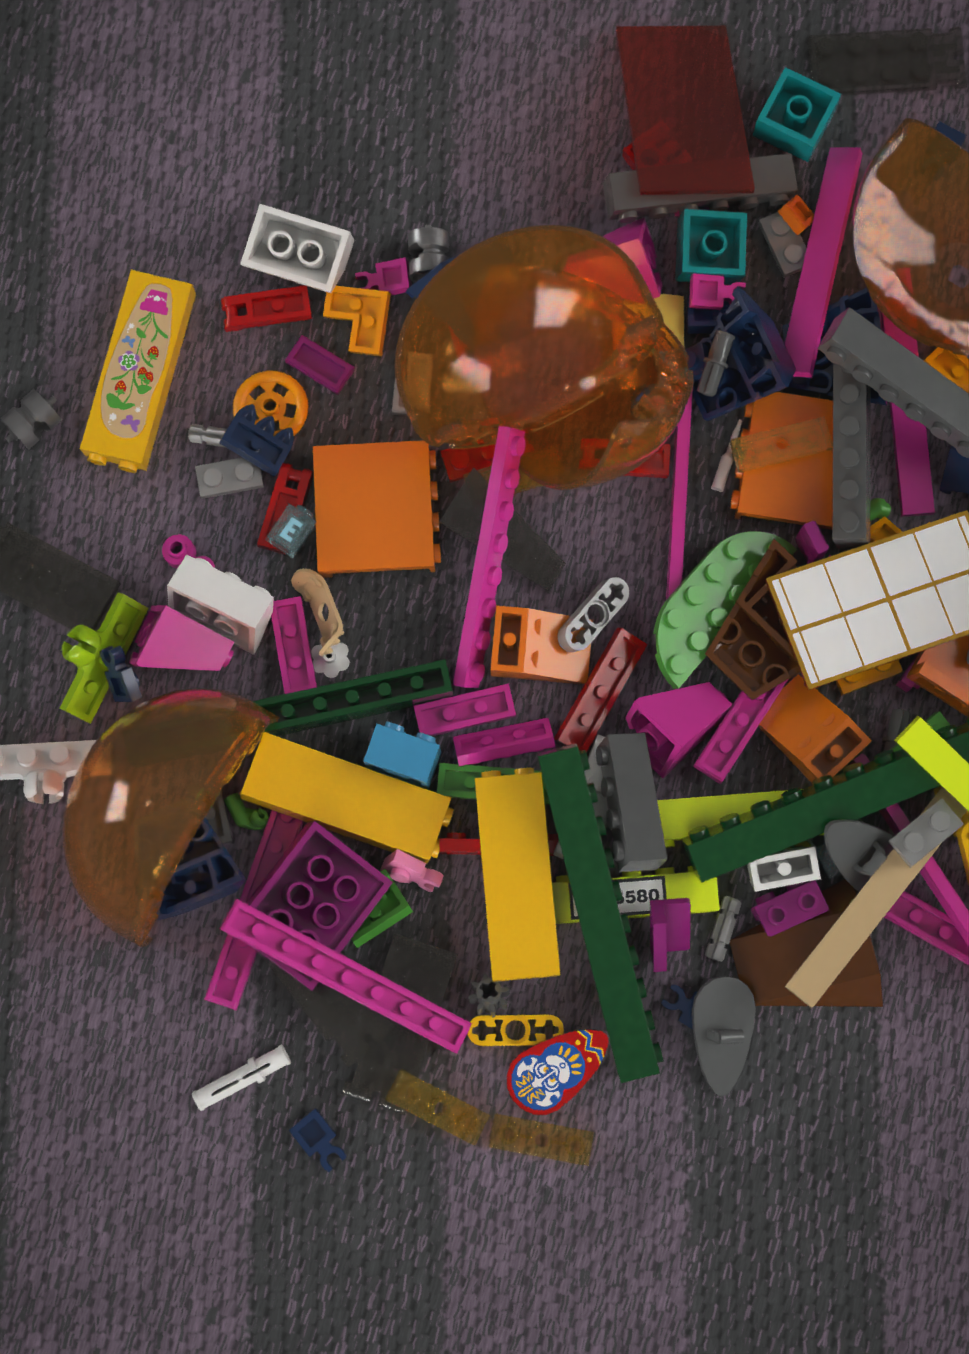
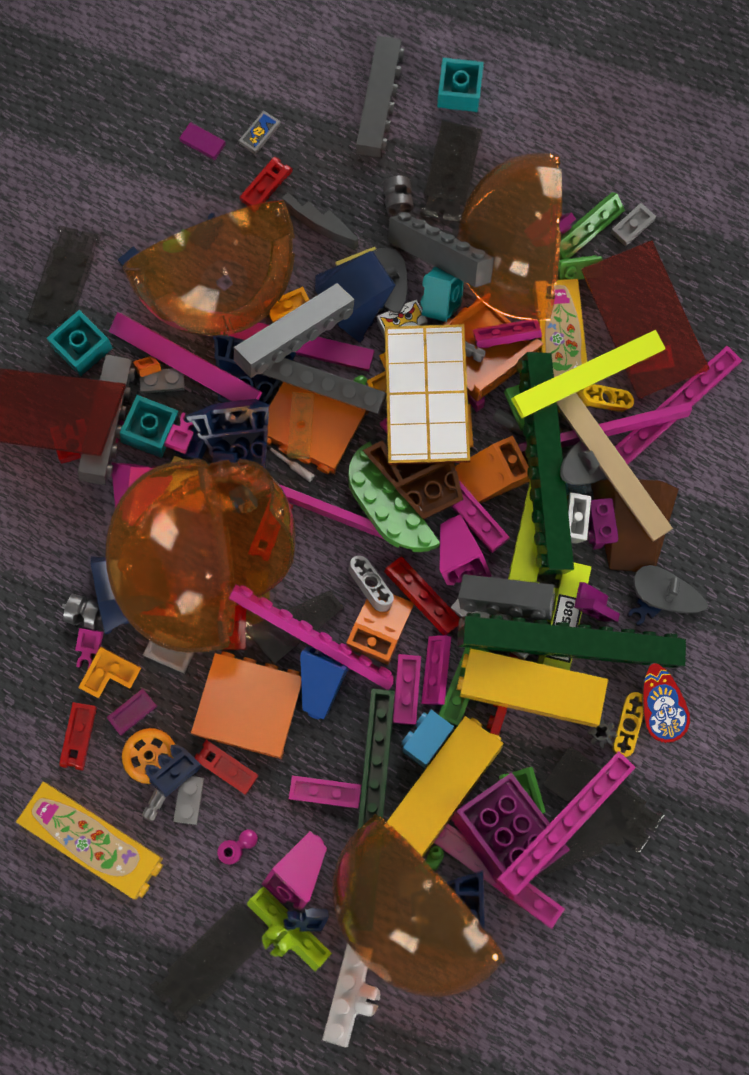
camera: 75 degrees left, 5 degrees down
(31, 419) = (97, 929): flat silver wheel -> none
(221, 602) = (279, 831): white slope -> none
(276, 1058) = (610, 921): white pin -> none
(291, 530) = (245, 765): clear light blue brick -> none
(297, 248) = (46, 700): white slope -> none
(314, 1135) = (663, 881): dark blue plate -> none
(317, 593) = (293, 763): tan piece -> none
(332, 665) = (343, 775): white plant -> none
(409, 869) = (502, 761): bright pink plate -> none
(420, 1099) = (659, 800): clear yellow tile -> none
(433, 590) = (320, 681): none -> blue slope
(563, 1142) = (698, 743): clear yellow tile -> none
(715, 363) = (231, 446): dark grey axle -> none
(723, 928) = (601, 570): light grey axle -> none
(811, 542) = (371, 429): magenta tile -> none
(926, 832) = (583, 421): light grey plate -> none

